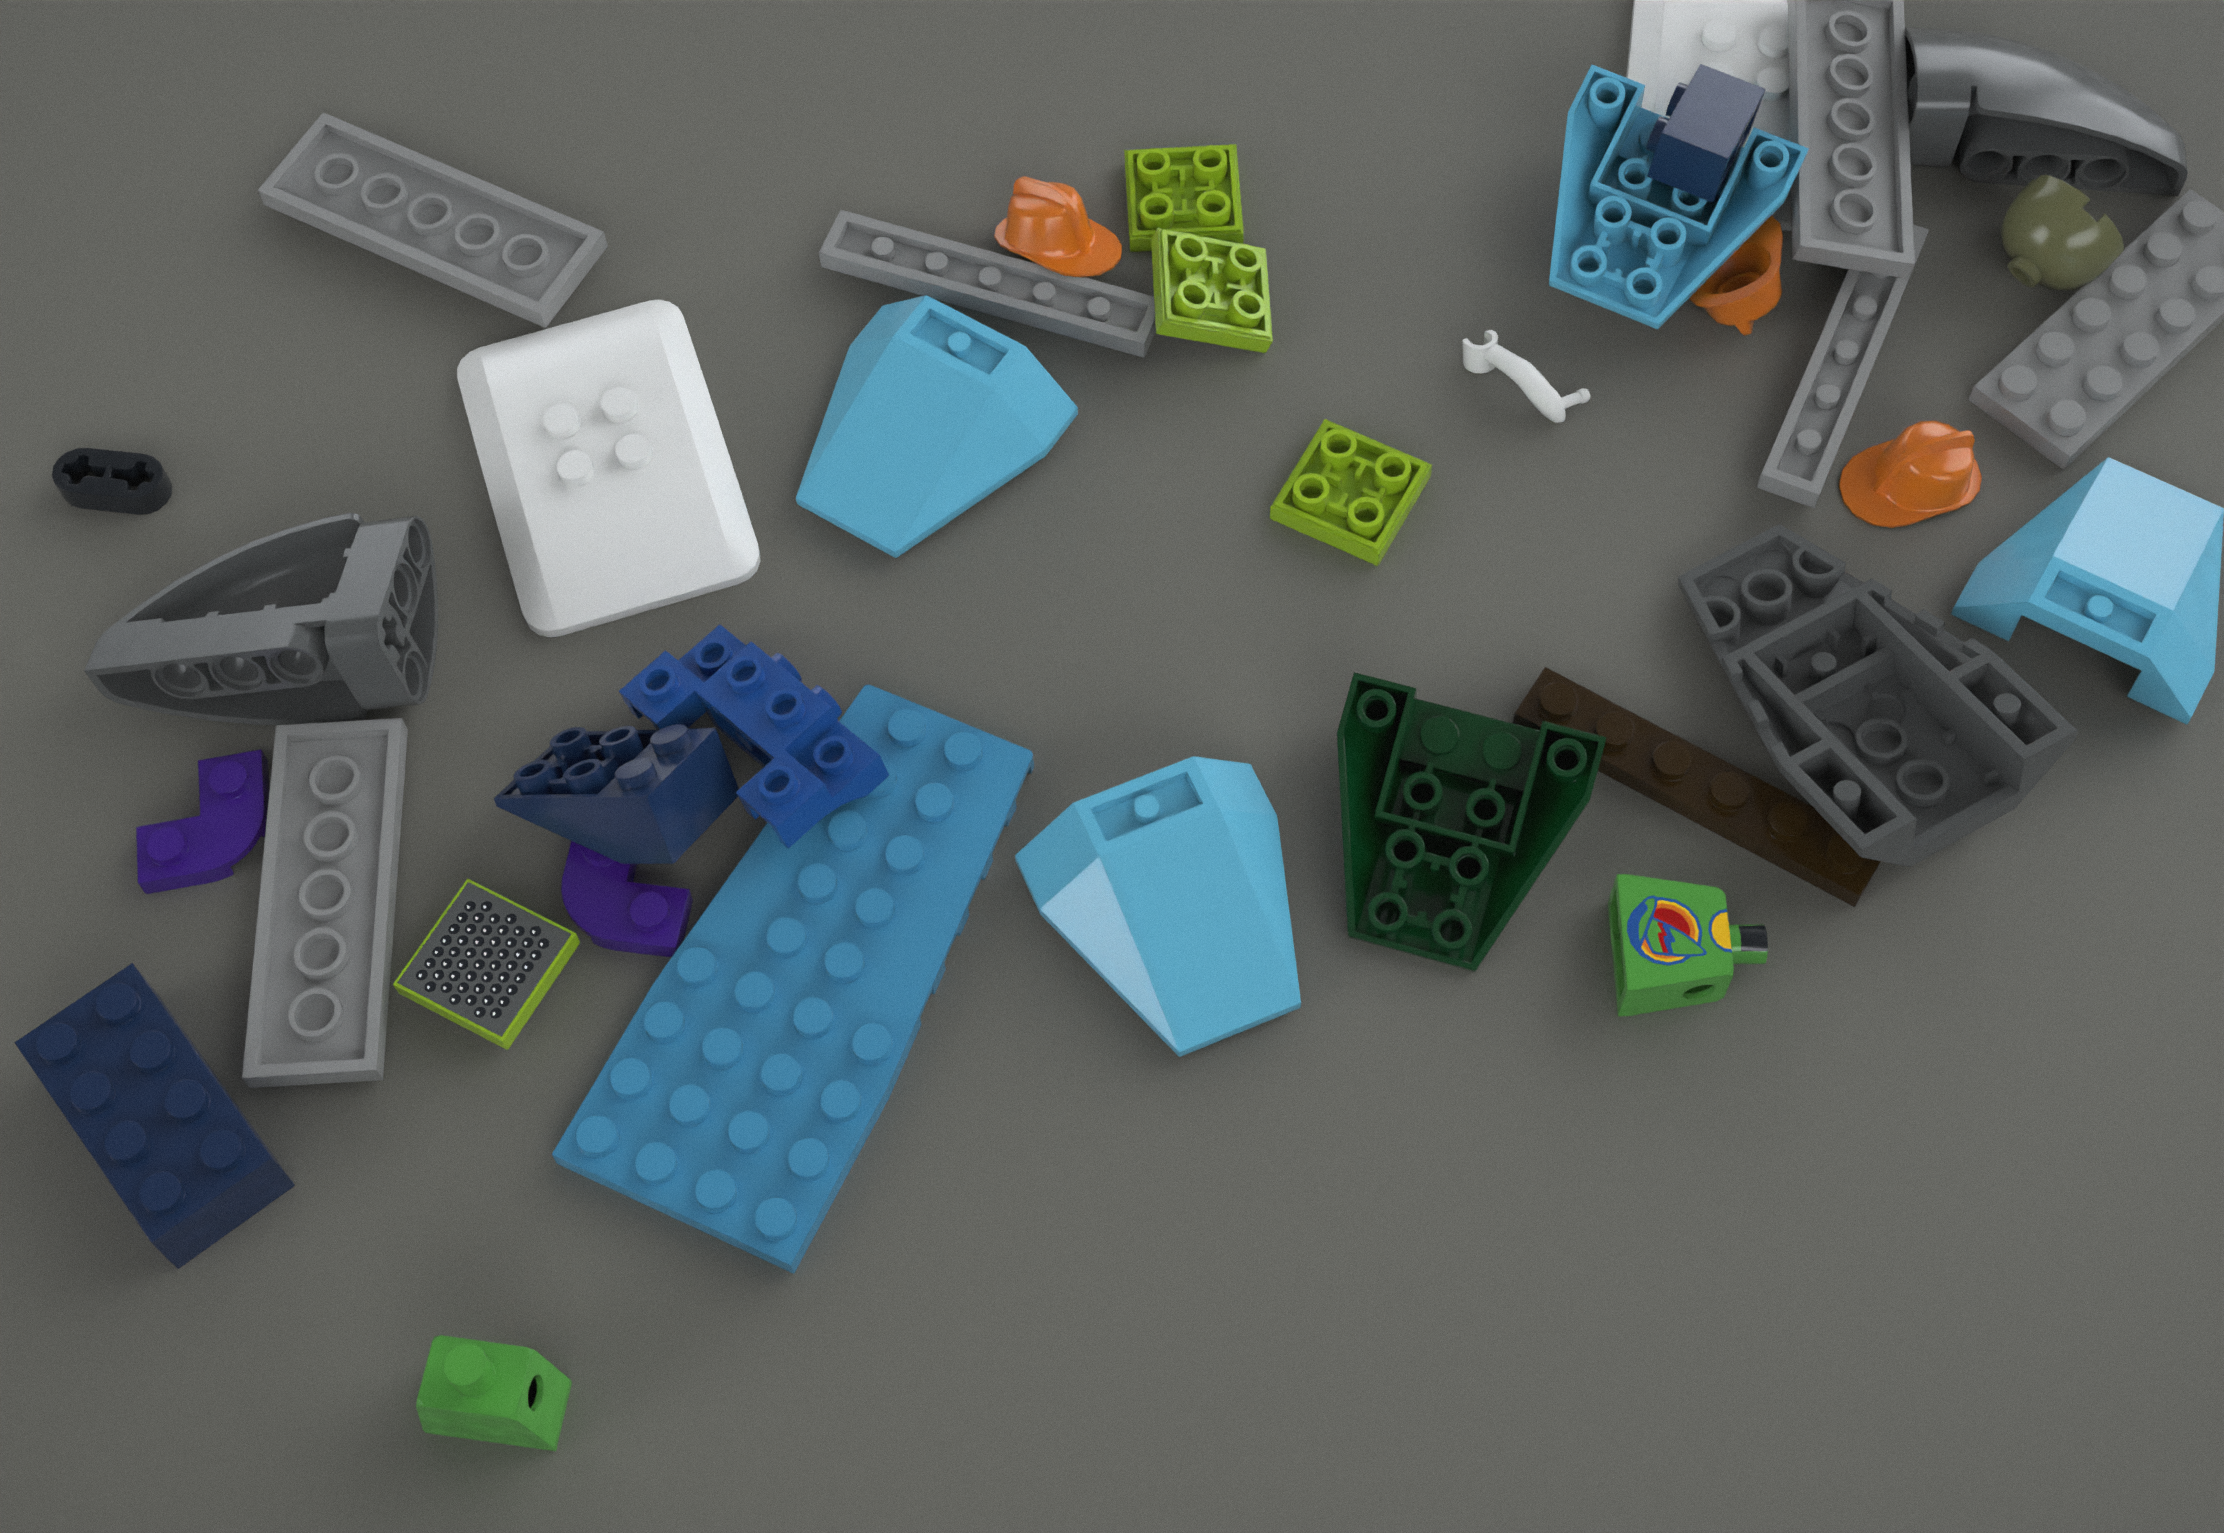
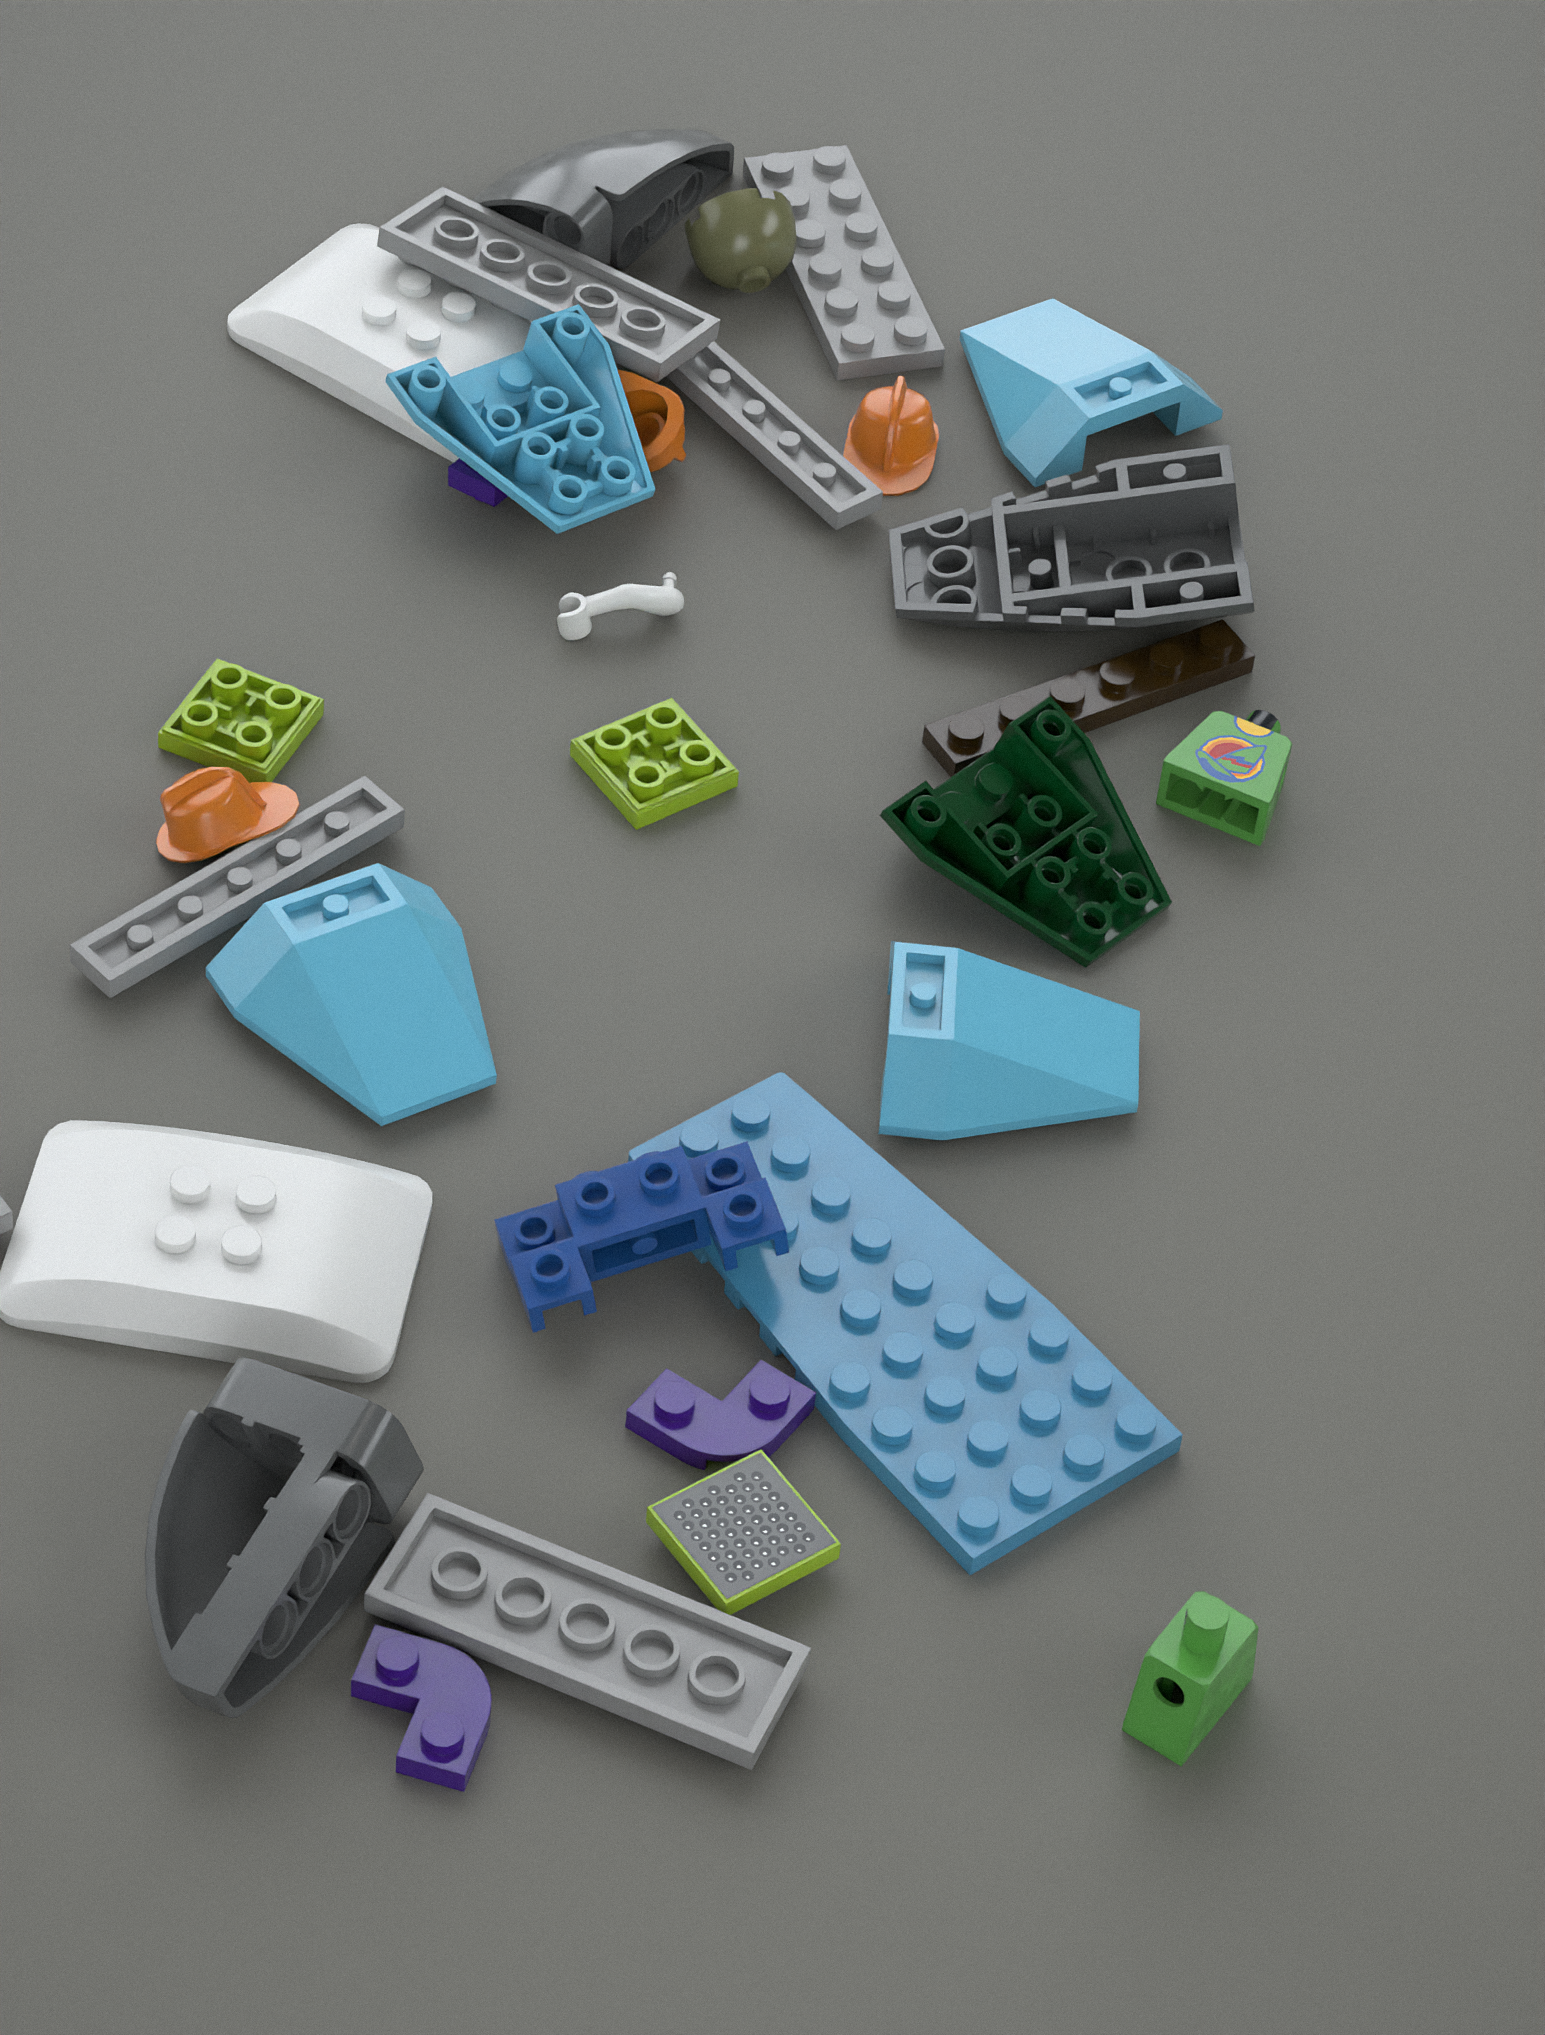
camera: 70 degrees left, 15 degrees down
(154, 1116) = (749, 1835): dark blue brick -> none
(626, 790) = (638, 1347): dark blue slope -> none
(1211, 291) = (377, 742): lime tile -> none
(1703, 132) = (512, 350): brick -> none

